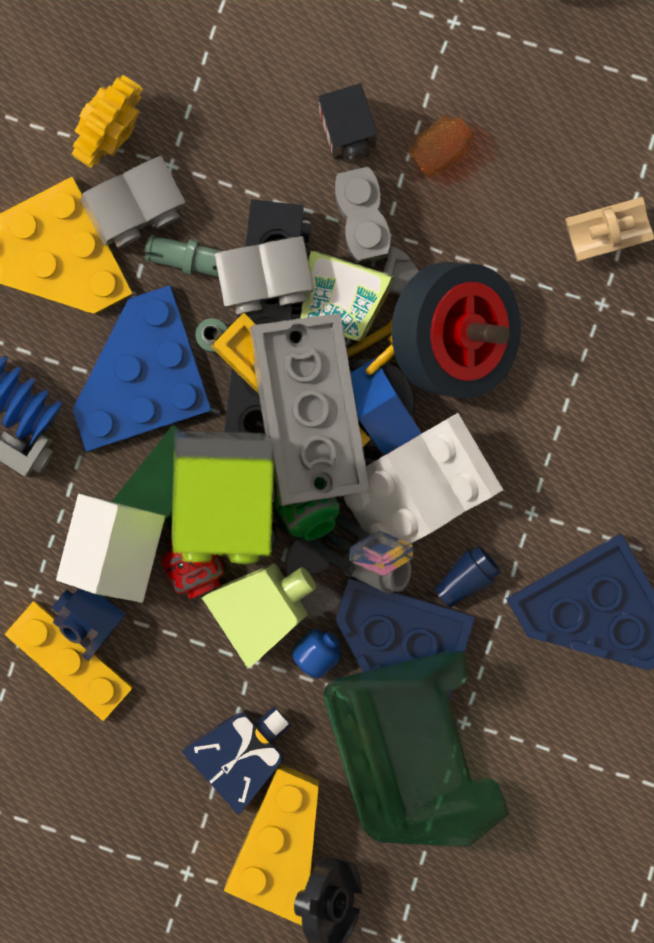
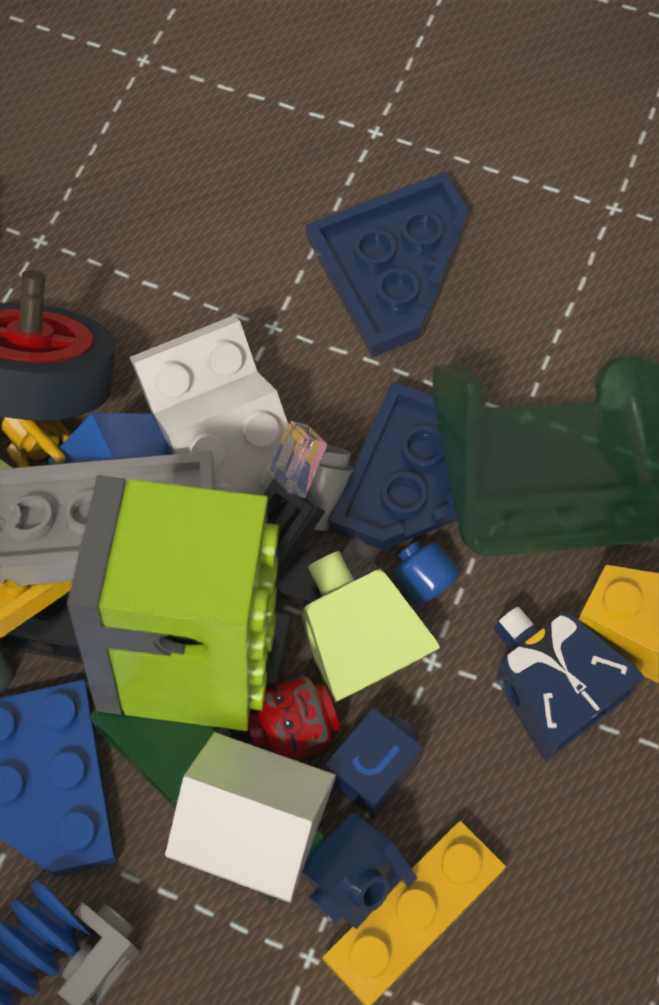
camera: 85 degrees left, 25 degrees down
(167, 627) = (375, 761): none -> dark blue brick
(468, 576) = (339, 386): dark blue cone -> none

